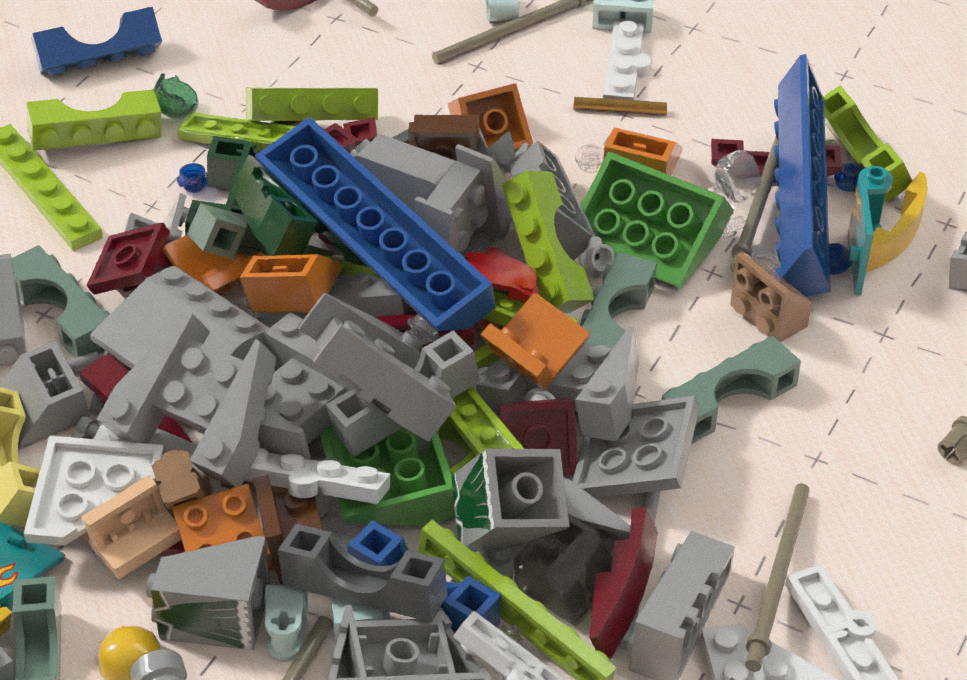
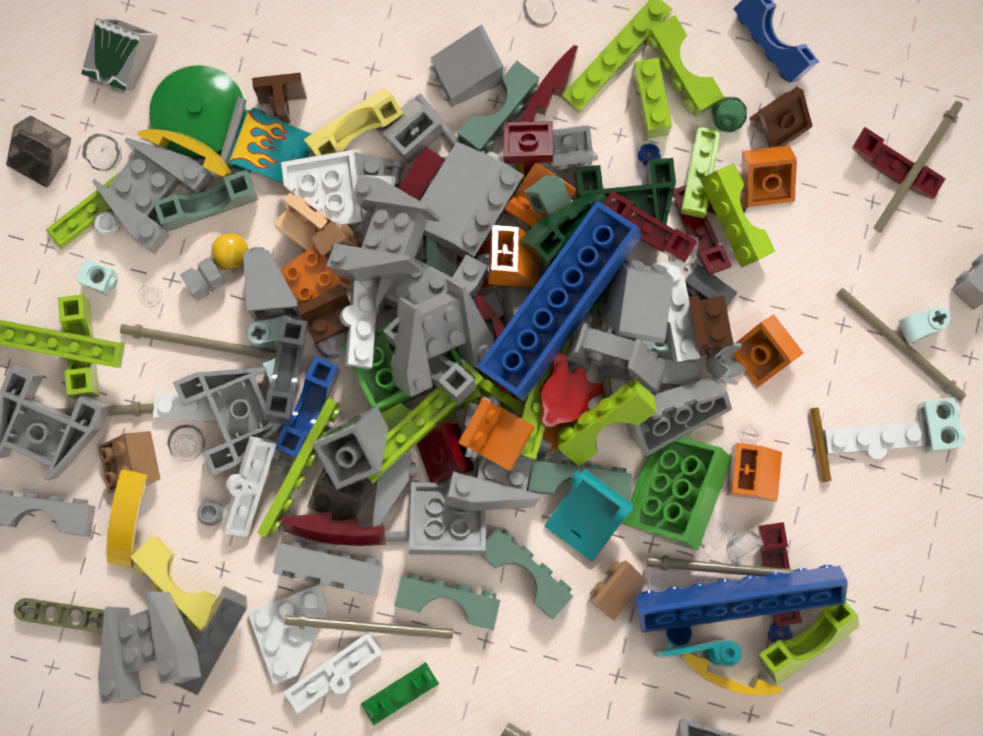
camera: 75 degrees right, 35 degrees up
(55, 240) = (552, 84): none -> dark red slope
(145, 153) = (655, 108): none -> lime arch
(201, 55) = (783, 118): none -> reddish brown bracket
(266, 67) = (769, 175): none -> orange slope
(604, 252) = (634, 459): white plate -> none
(662, 302) = (588, 514): none -> teal door
(739, 509) = (415, 594): none -> sand green arch
(882, 564) = (399, 693): none -> green plate

